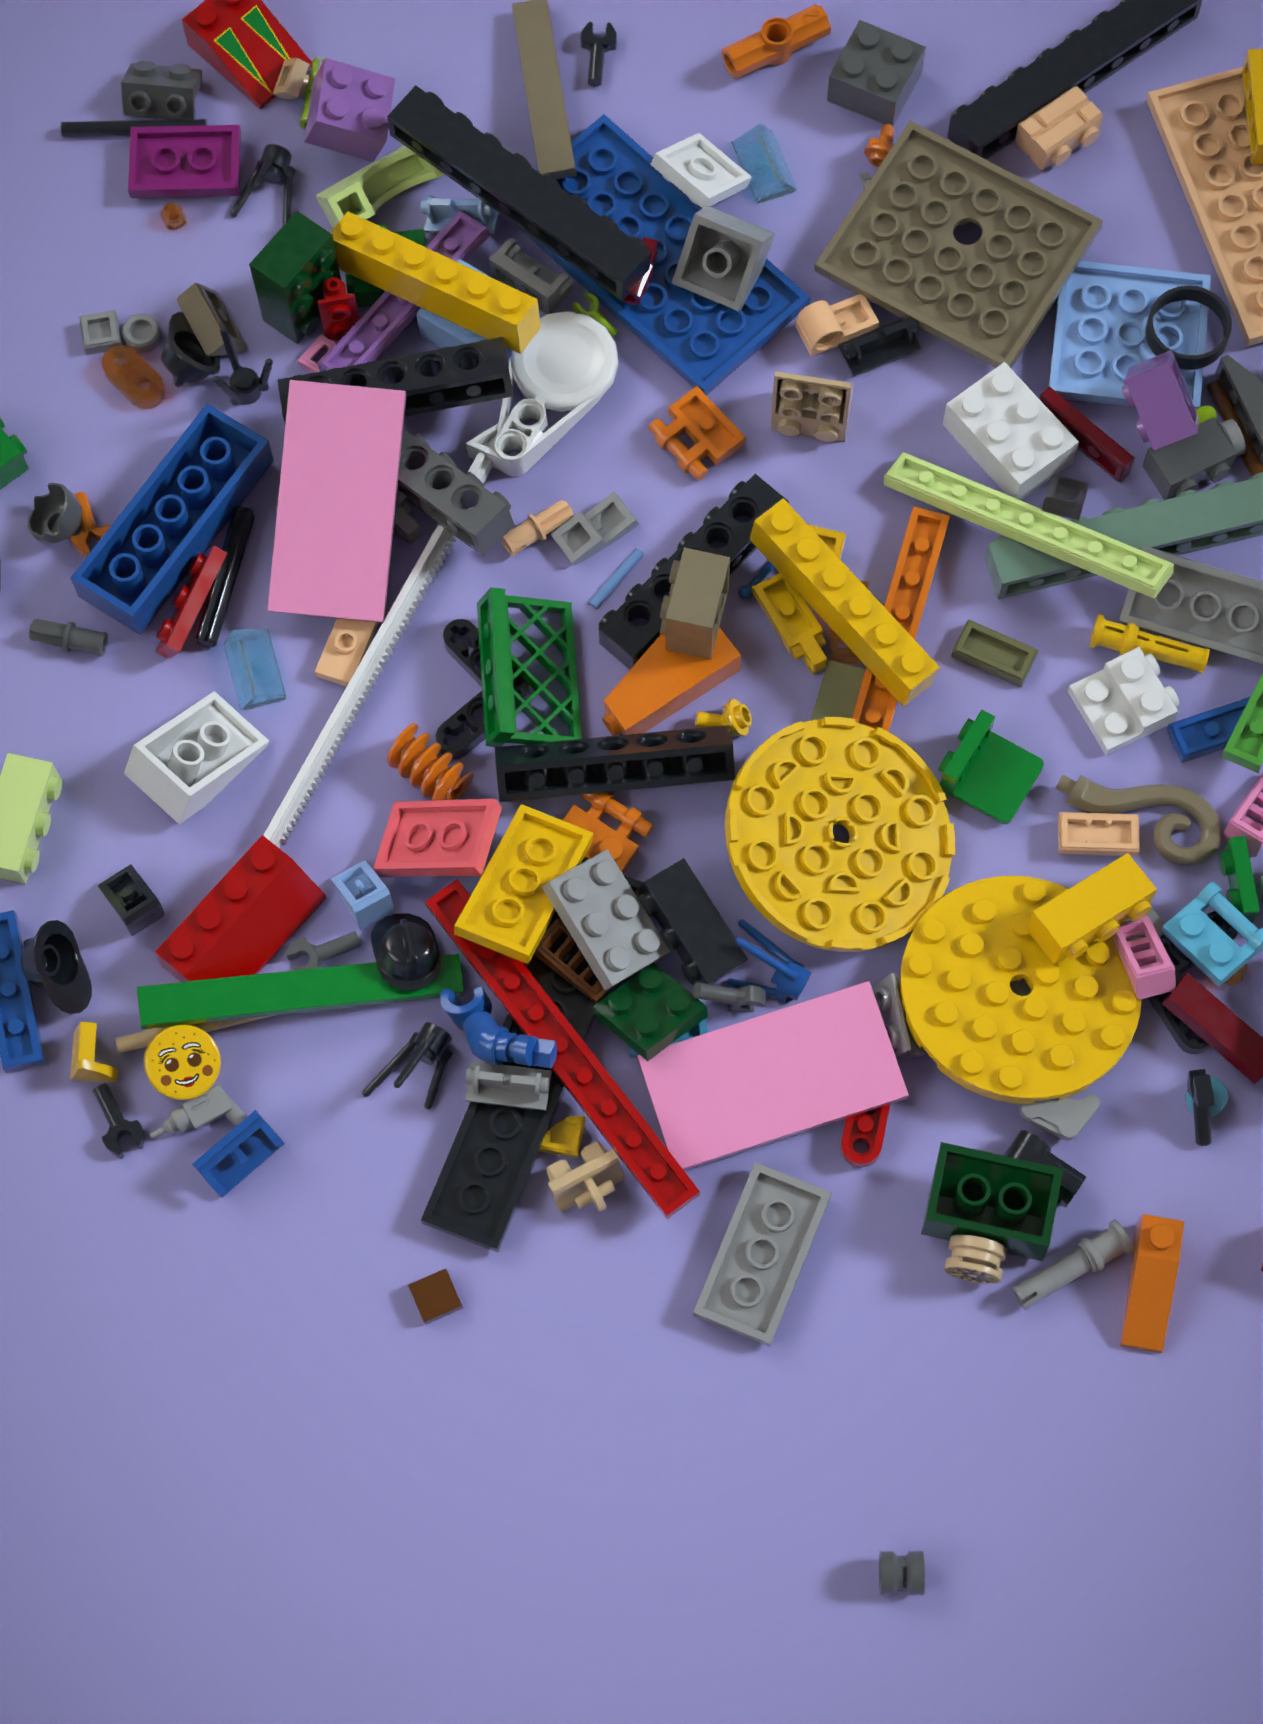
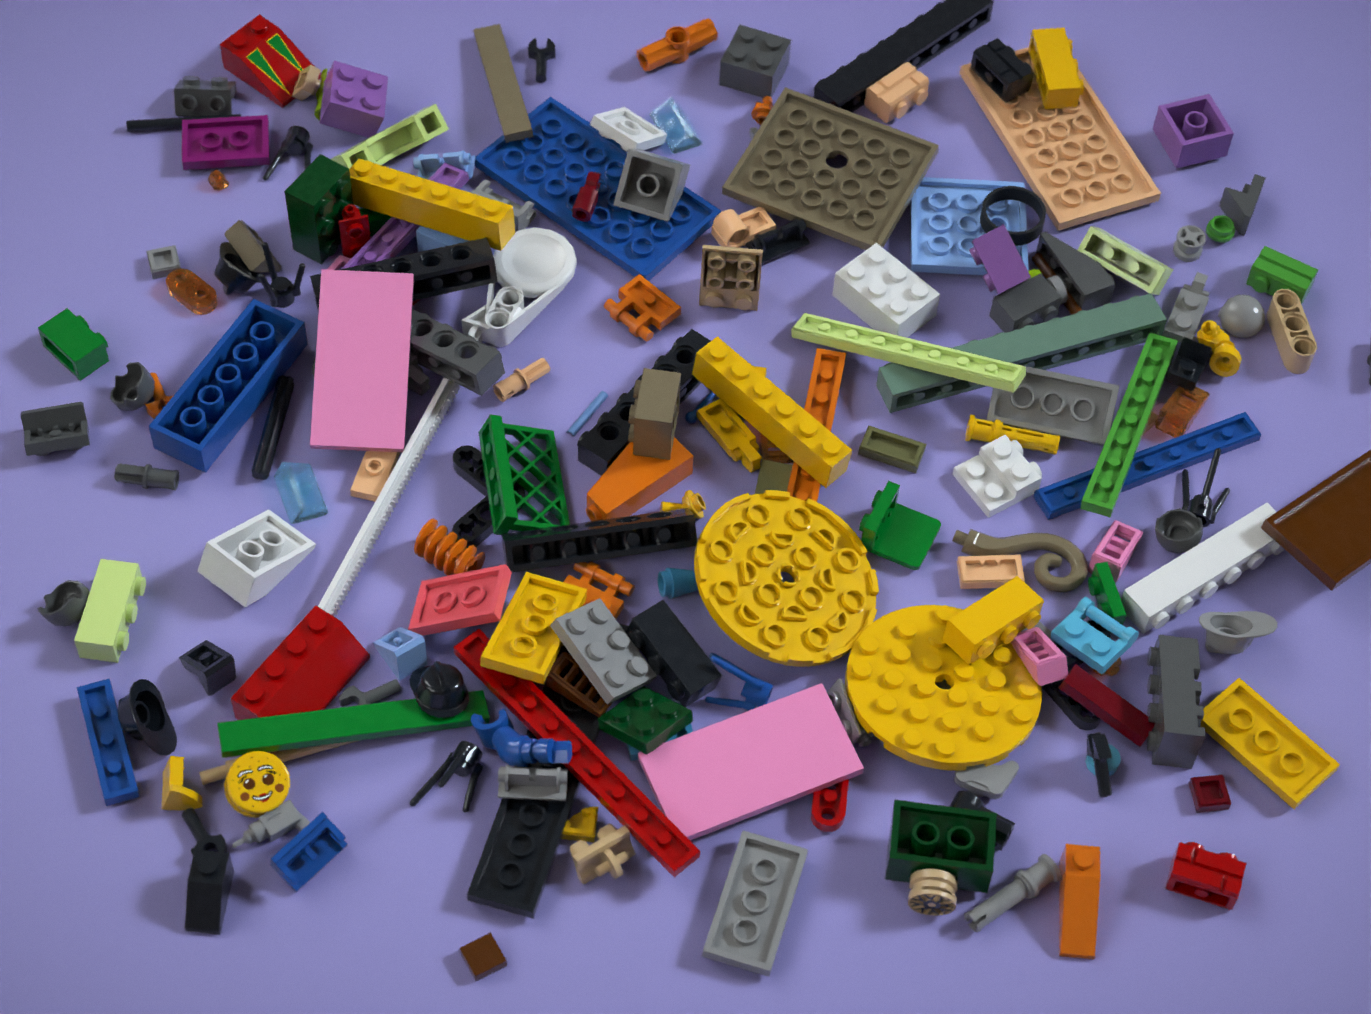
camera: 10 degrees left, 15 degrees down
(119, 1193) = (208, 891): none -> black slope
(142, 333) = (197, 260): light grey tile -> none
(189, 601) = (244, 444): red plate -> none
(519, 192) = (492, 142): black brick -> none
(594, 313) = (553, 226): lime hand -> none
(595, 530) = (566, 381): light grey slope -> none
(703, 824) = (676, 582): none -> dark azure cone
(739, 999) = (716, 709): dark grey bar -> none
(1065, 497) = (934, 334): clear smoke tile -> none
(1091, 438) = (951, 297): dark red tile -> none
(1201, 105) = (1002, 70): none -> black brick

